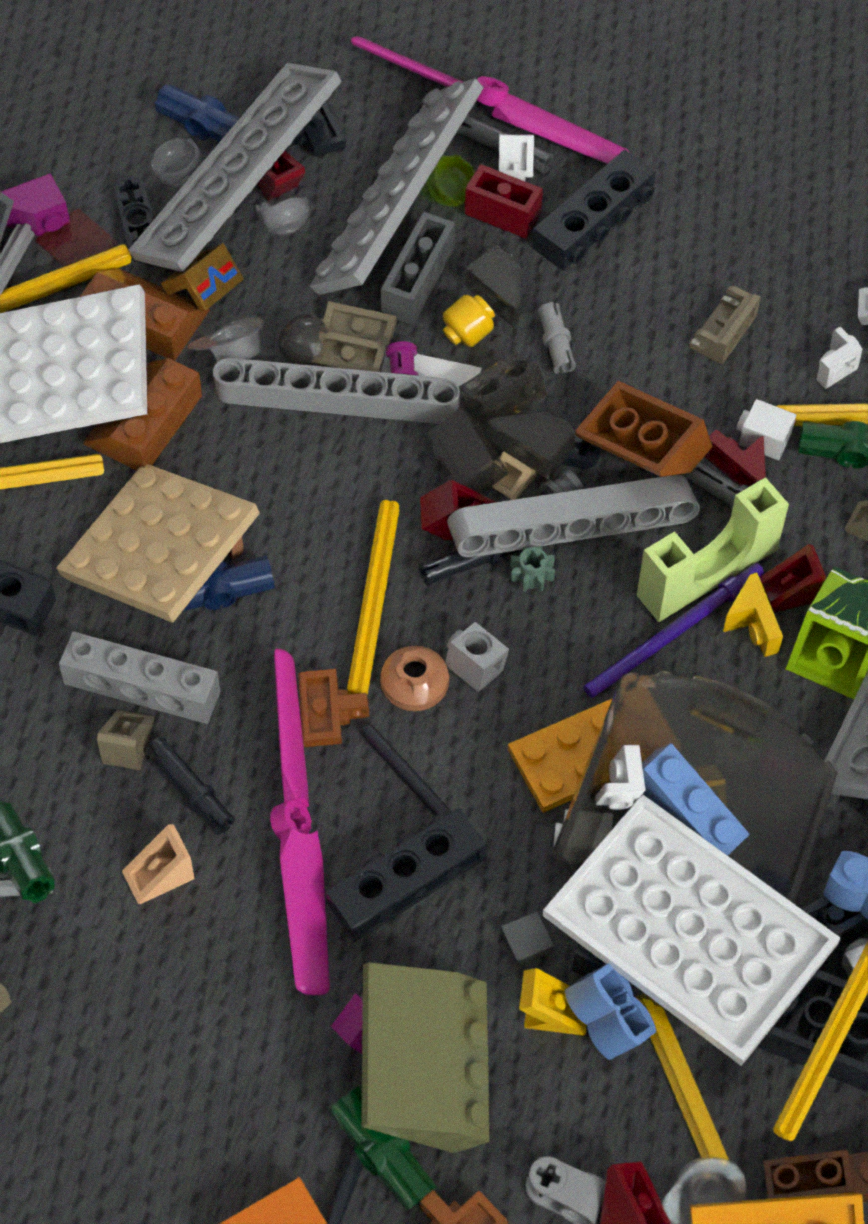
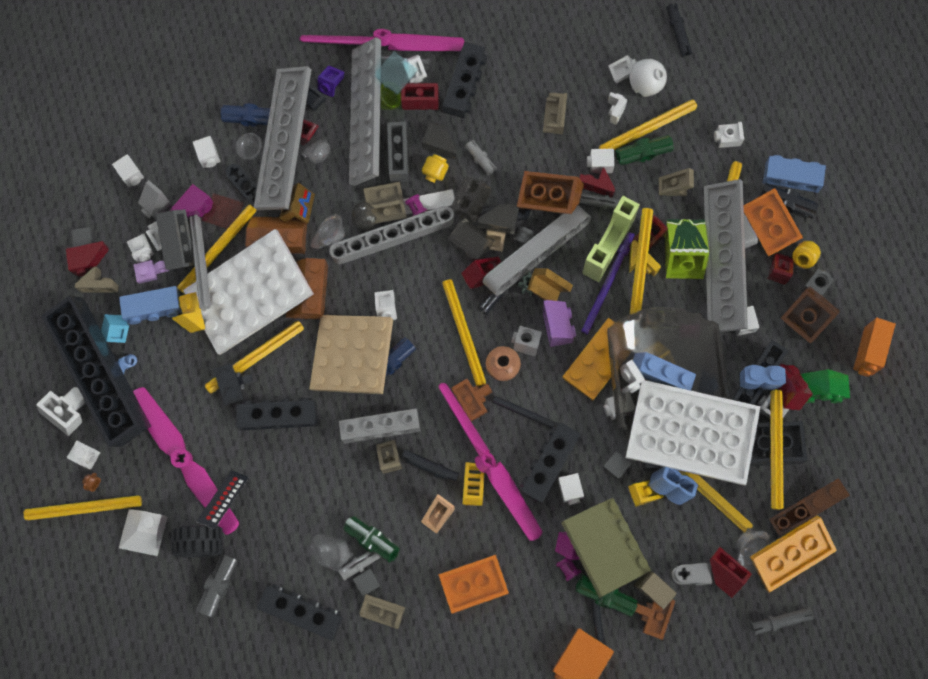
camera: 20 degrees left, 15 degrees up
(102, 141) = (206, 152): none -> white brick
(153, 1016) = (473, 584): none -> orange plate
(235, 870) = (469, 495): none -> yellow slope
(264, 490) = (385, 304): none -> white bracket
(339, 1069) = (568, 568): none -> magenta bush
(366, 118) = (329, 80): none -> dark purple bracket
(419, 935) = (571, 489): none -> white brick
(479, 143) = (395, 72): none -> clear light blue piece
(480, 1178) = (655, 589): none -> dark tan slope
(546, 649) = (557, 323): none -> medium lavender slope
(562, 580) = (548, 284): none -> pearl gold panel
(755, 599) = (641, 260): none -> yellow axle

